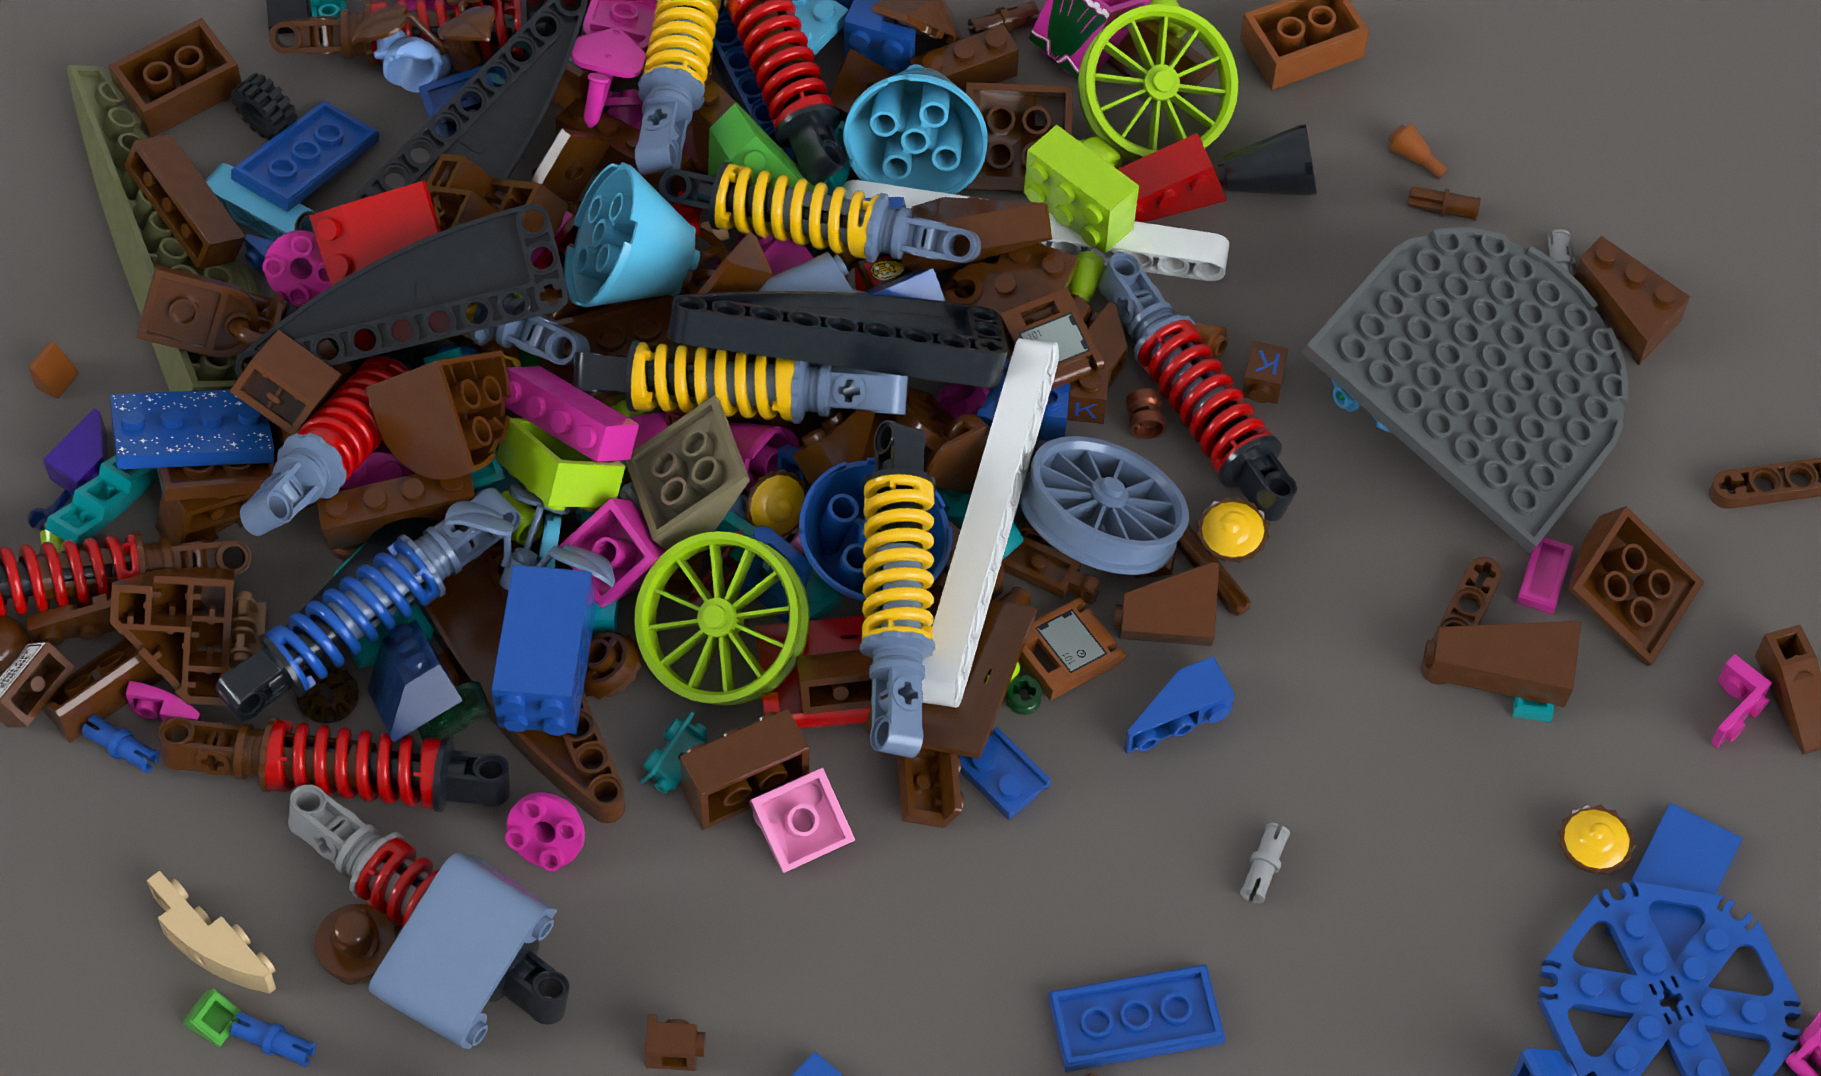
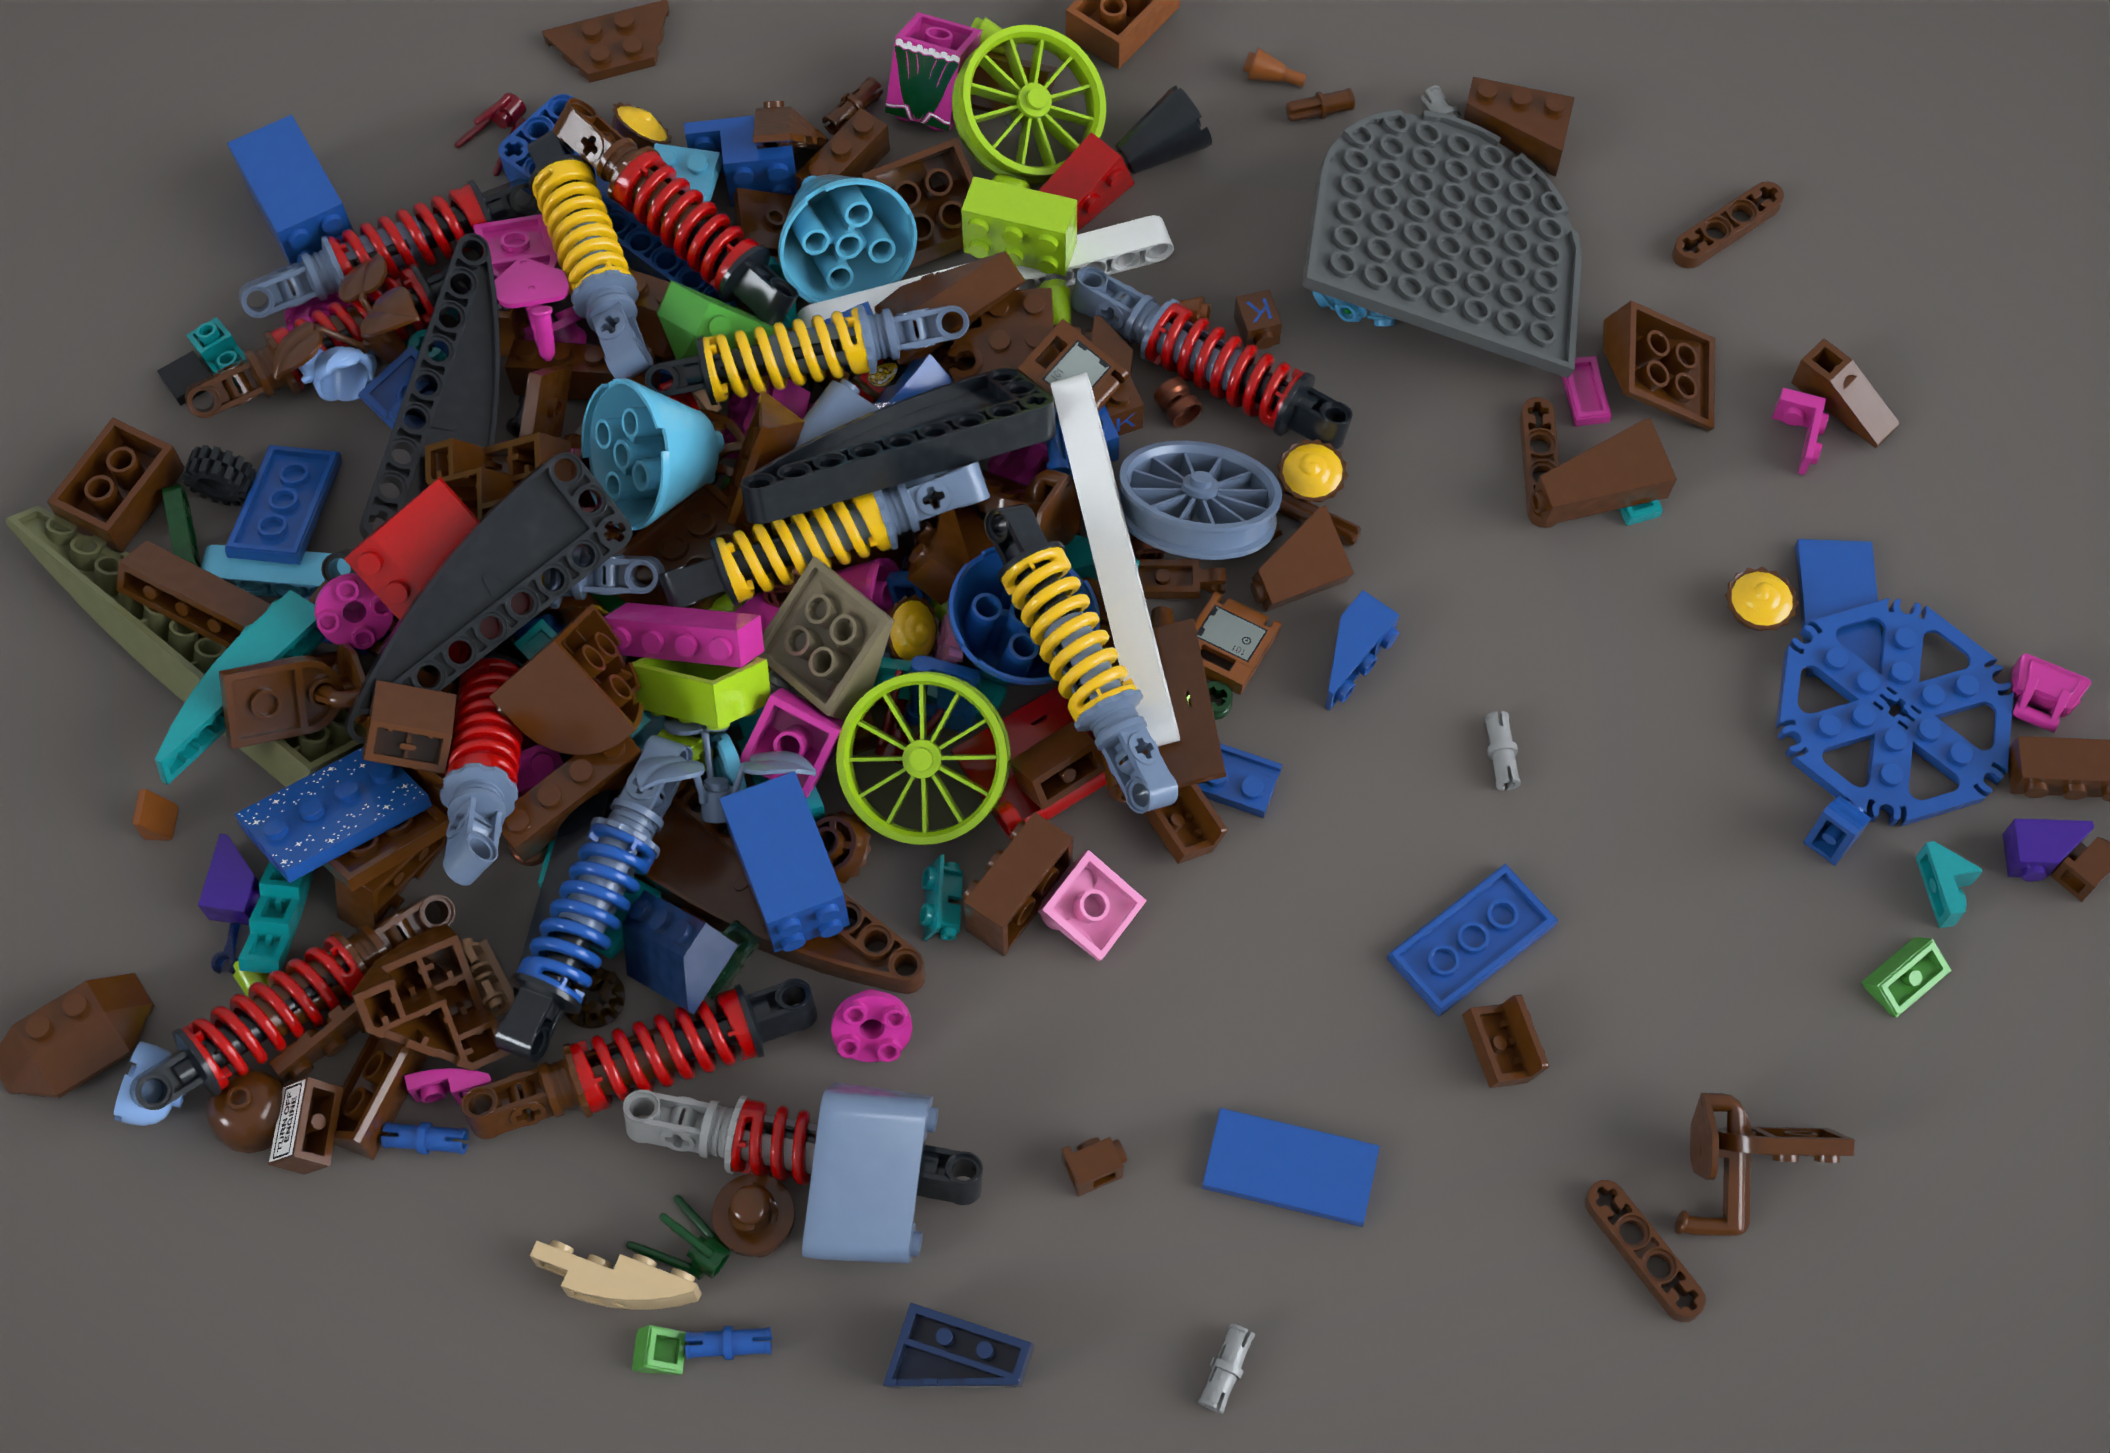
camera: 25 degrees left, 5 degrees up
(121, 304) = (280, 633): none -> teal slope
(211, 136) = (181, 524): none -> dark green beam
(296, 956) = (707, 1254): none -> dark green plant

